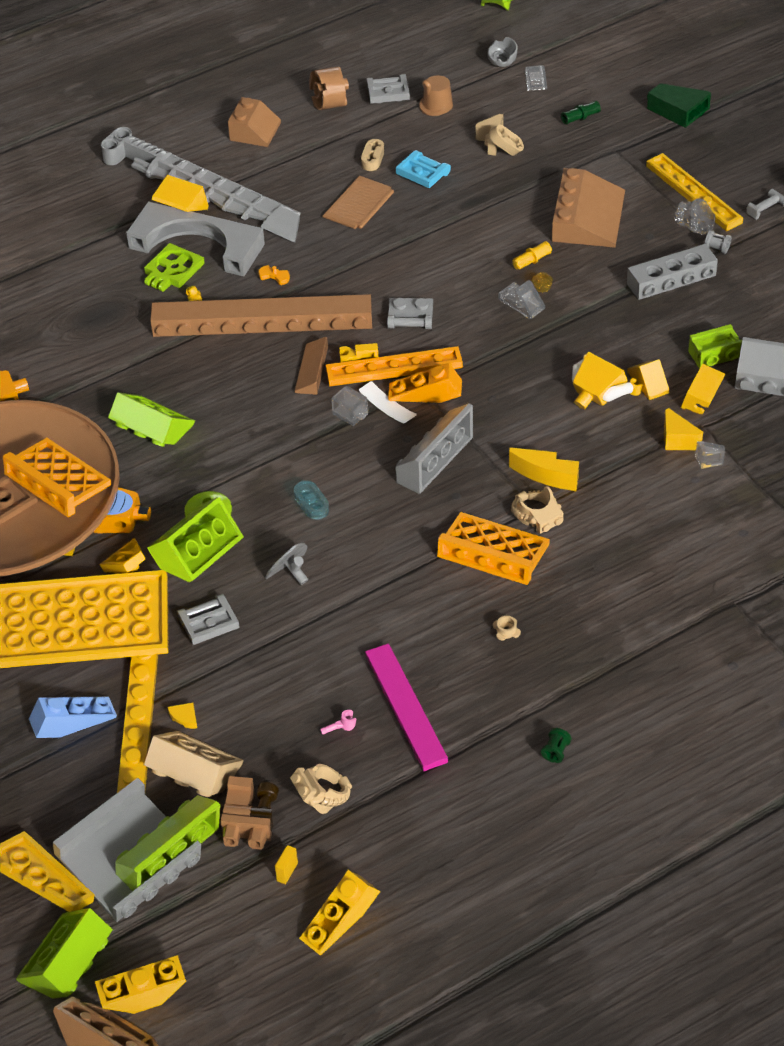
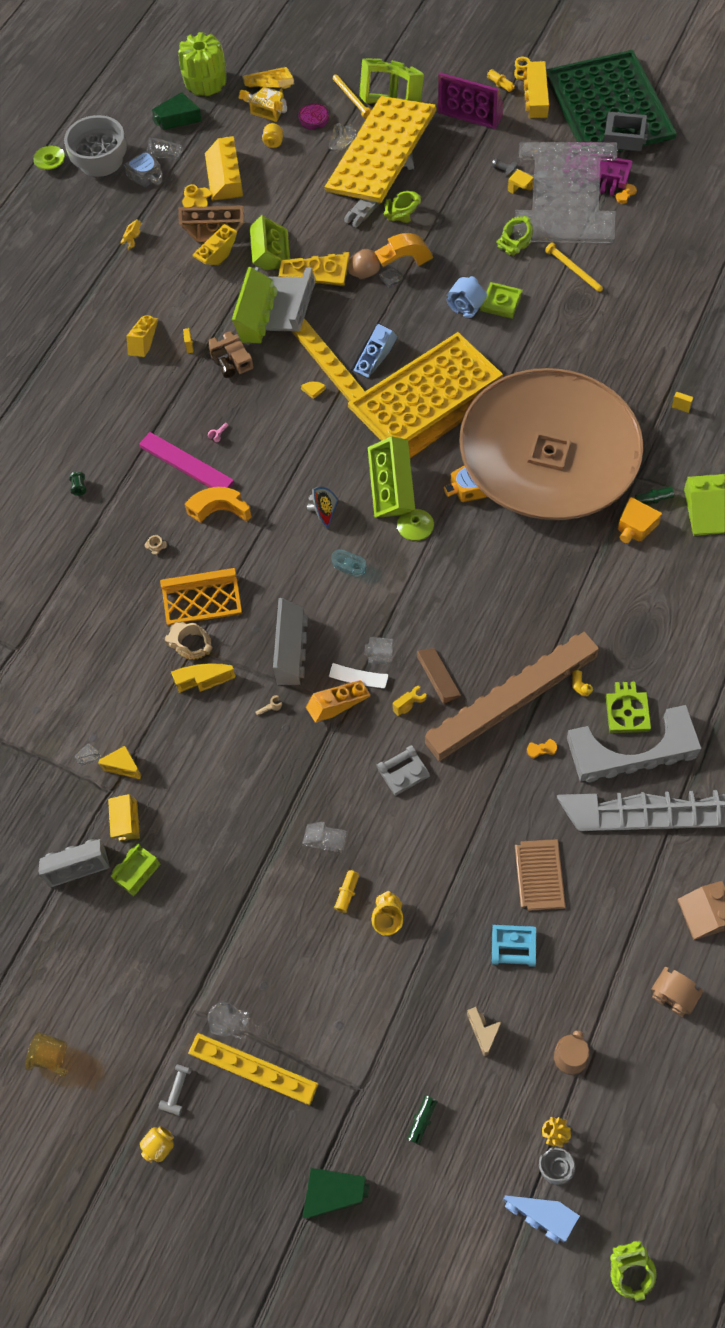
camera: 150 degrees right, 15 degrees up
(42, 483) = (520, 443): light orange fence -> none
(125, 559) = (430, 451): yellow wing -> none
(149, 419) = (512, 562): lime slope -> none
(181, 194) = (681, 771): yellow slope -> none
(191, 762) = (283, 364): tan slope -> none
(204, 624) = (343, 444): light grey plate -> none
(314, 794) = (207, 377): tan piece -> none
(369, 153) = (578, 938): tan beam -> none
(388, 89) = (624, 1037): light grey plate -> none
(391, 366) = (374, 708): light orange plate -> none
(404, 637) = (215, 499): none -> light orange arch
(487, 66) = (556, 1132): none -> yellow gear
(488, 418) = (275, 707): none -> tan hand
(506, 140) = (461, 1022): tan beam -> none
(508, 224) = (387, 916): none -> yellow hair
(532, 39) = (547, 1214): none -> light blue slope
(535, 77) = (499, 1150): clear slope -> none
(542, 282) = (320, 872): clear yellow plate -> none
(587, 210) = (331, 977): medium nougat slope -> none
(600, 381) = (206, 774): yellow torso -> none
(652, 378) = (176, 811): yellow slope -> none
(672, 271) = (213, 949): light grey brick -> none
(718, 241) = (194, 1003): light grey bush -> none

